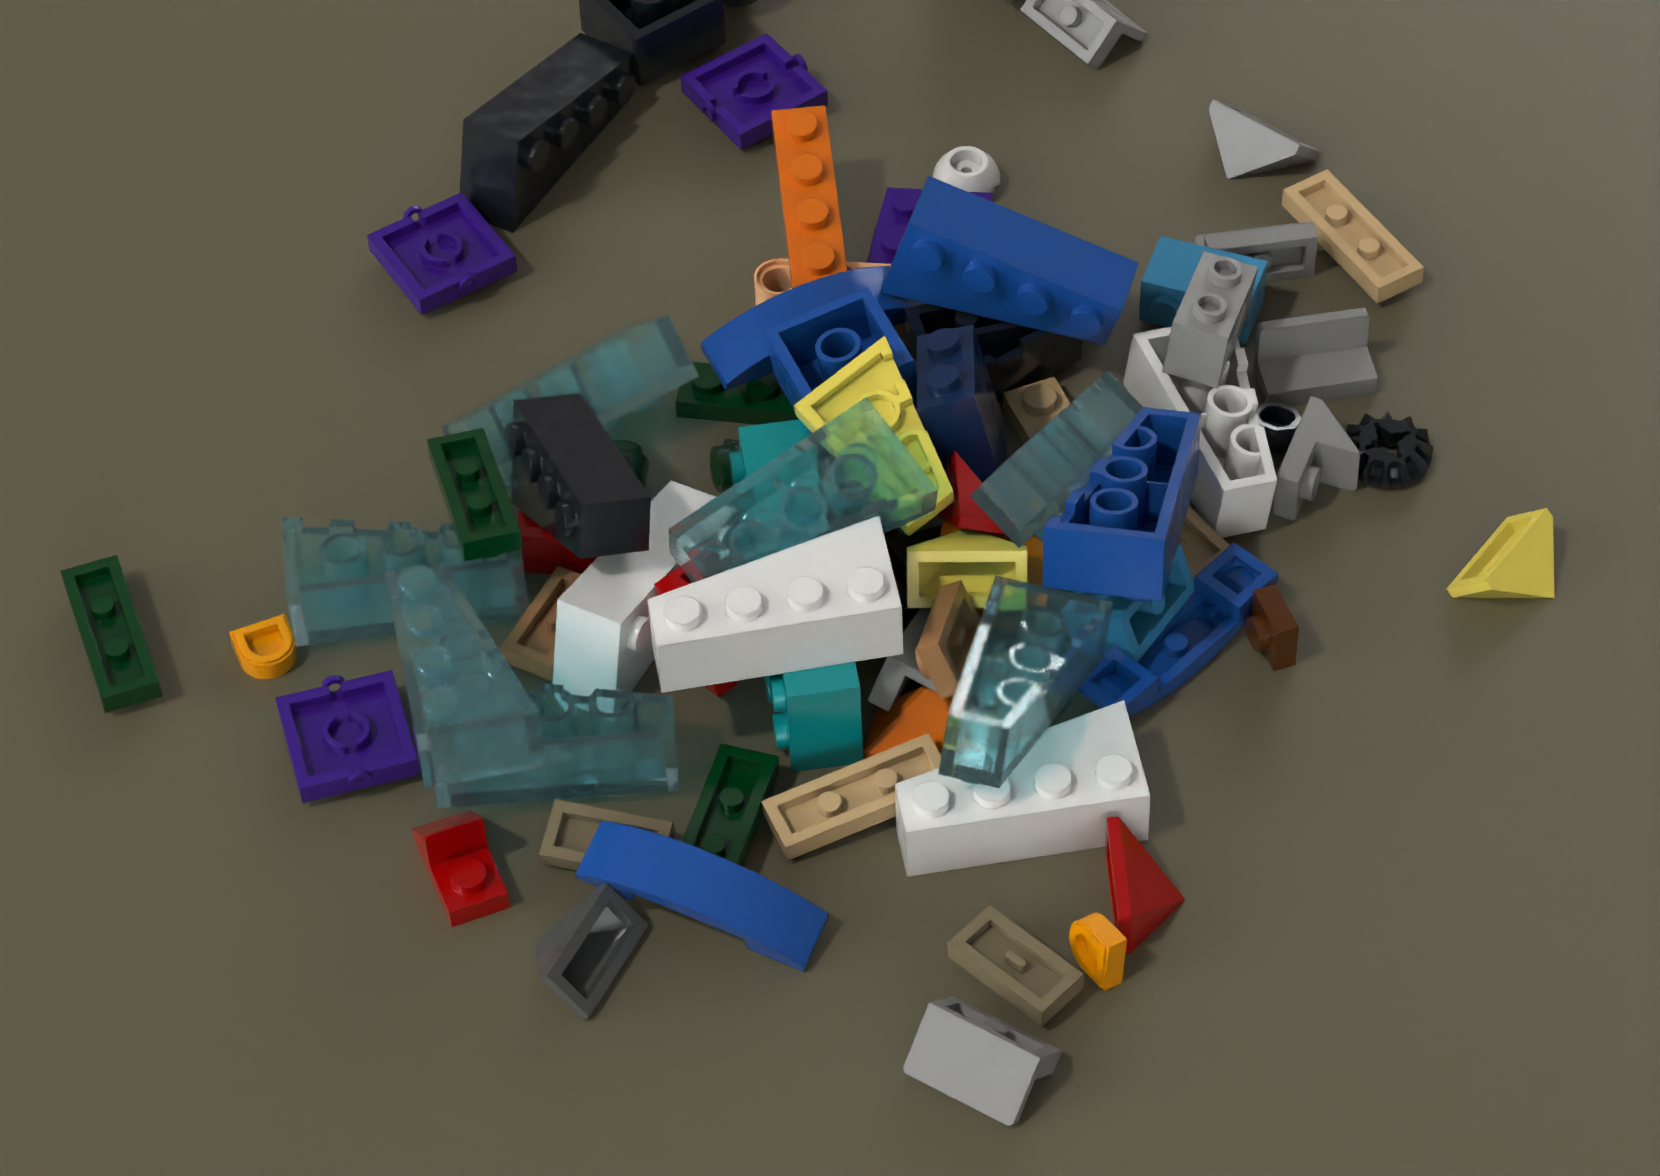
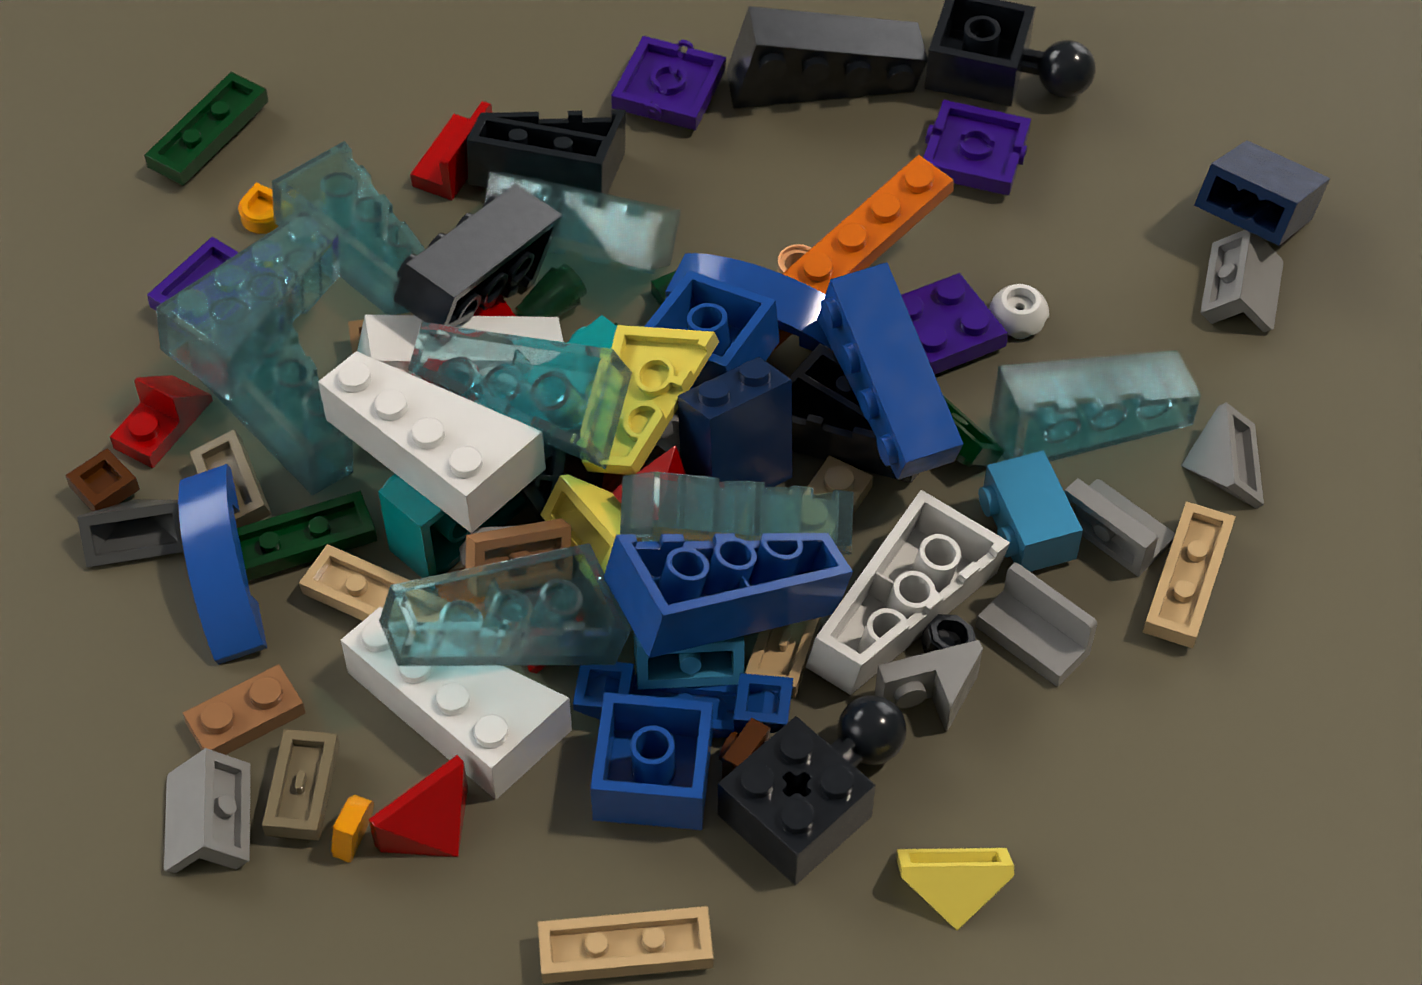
camera: 50 degrees right, 5 degrees up
(358, 458) = (444, 164): none -> red panel
(453, 373) = (560, 150): none -> black wedge
(474, 494) = (427, 215): dark green plate -> none
(503, 946) = (102, 481): none -> reddish brown plate
(886, 975) = (245, 712): none -> medium nougat plate
(1131, 176) = (1090, 403): none -> clear light blue wedge
(1210, 319) = (963, 524): light grey brick -> none
(1231, 687) = (652, 761): none -> blue brick
(1349, 601) = (805, 796): none -> black brick
(1381, 467) = (1009, 744): black gear -> none
(1390, 819) = (625, 944): none -> tan plate

